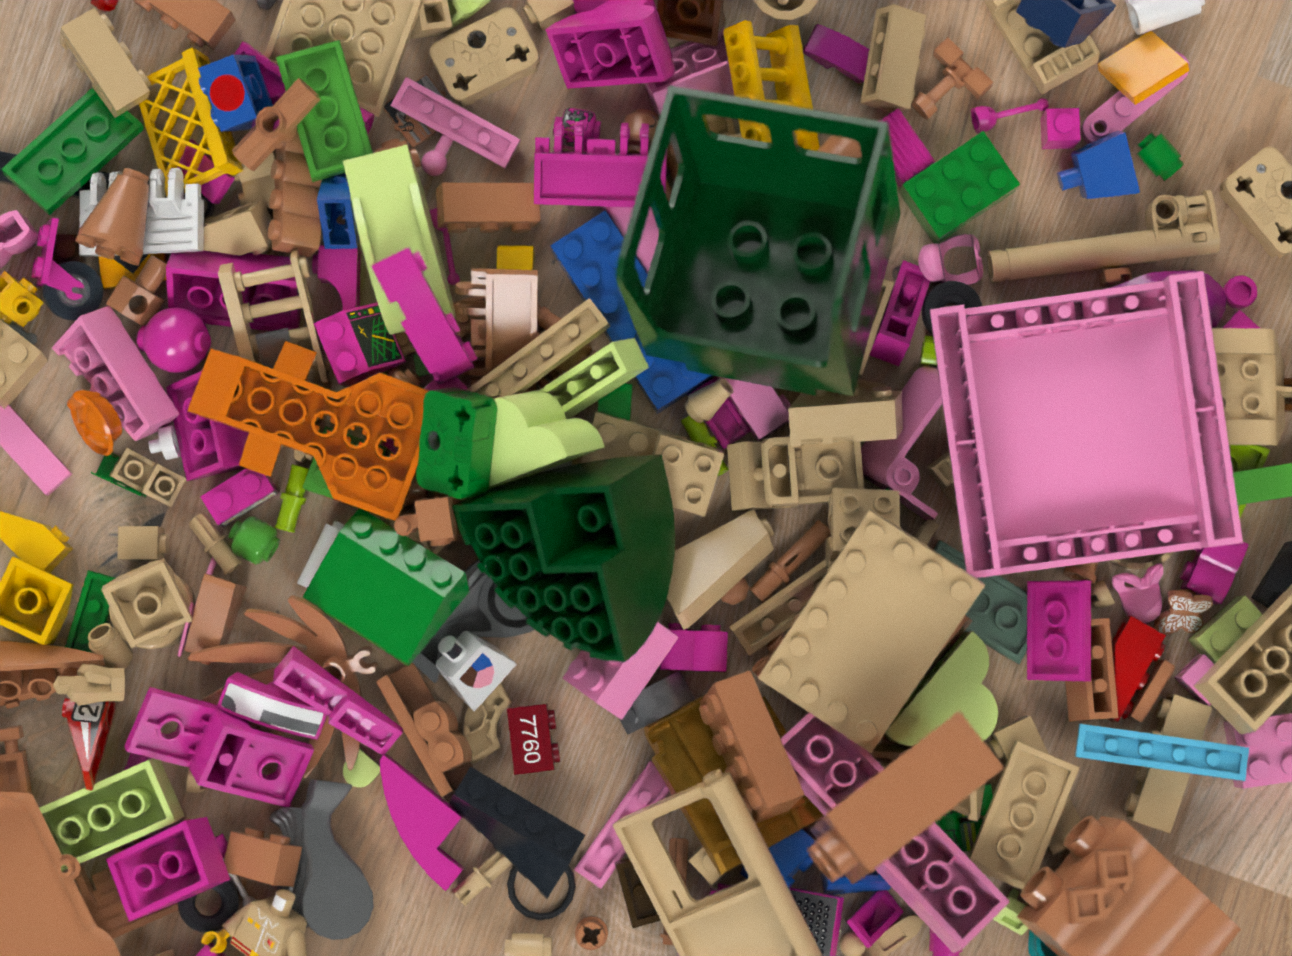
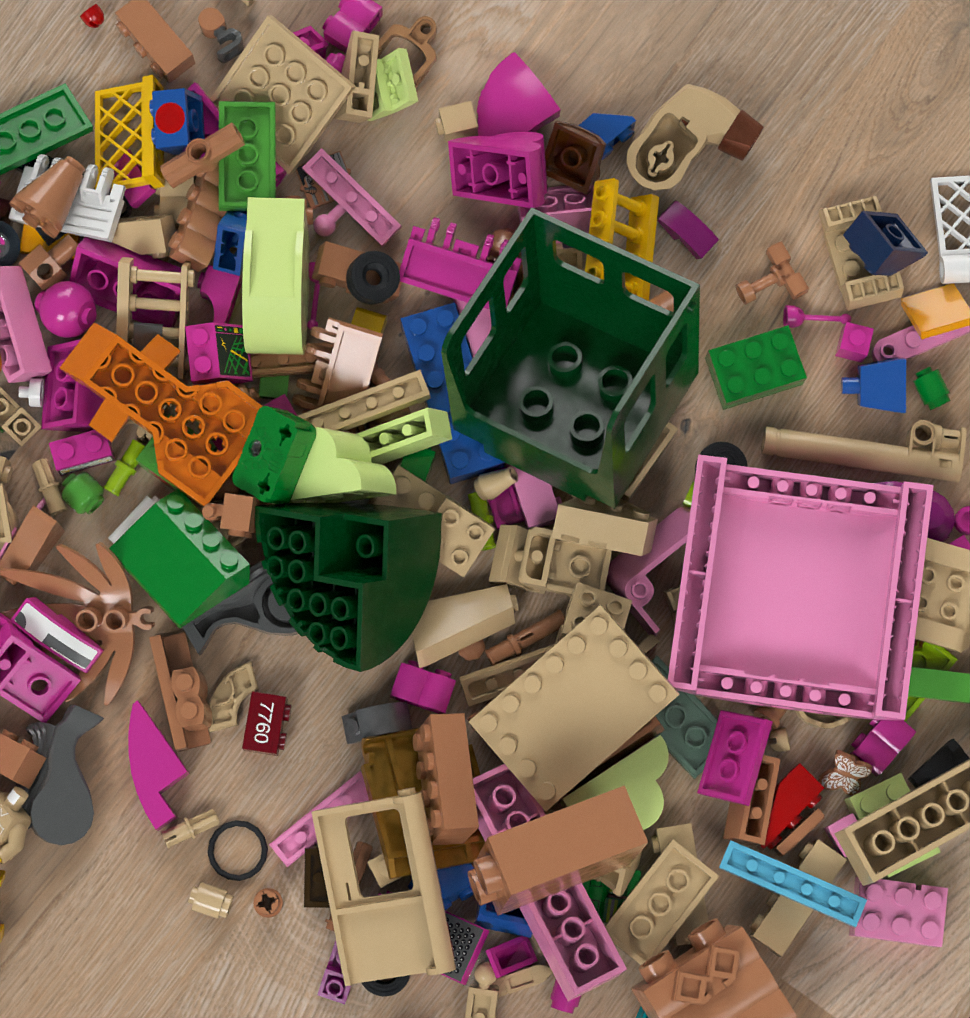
camera: 10 degrees right, 5 degrees down
(105, 61) = (77, 66): tan wedge -> none
(344, 707) = (115, 649): dark pink slope -> none
(363, 772) = (116, 711): yellowish green tile -> none
(425, 323) = (277, 346): dark pink brick -> none
(472, 667) = (233, 648): white torso -> none
(487, 67) = (393, 159): tan axle -> none
(518, 829) = (231, 794): black wedge -> none
(525, 205) = (388, 273): none -> black tyre
(591, 126) = (463, 229): dark pink head -> none
(619, 683) = (352, 692): bright pink brick -> none
(893, 58) = (731, 246): tan brick -> none
(900, 314) = (677, 457): dark pink slope -> none
(908, 151) = (716, 321): dark pink brick -> none
(932, 260) = (716, 421): bright pink piece -> none
(1009, 914) = (624, 985): yellowish green tile -> none
(1114, 276) = (868, 476): nougat tile -> none
(1144, 597) = (814, 754): bright pink piece -> none

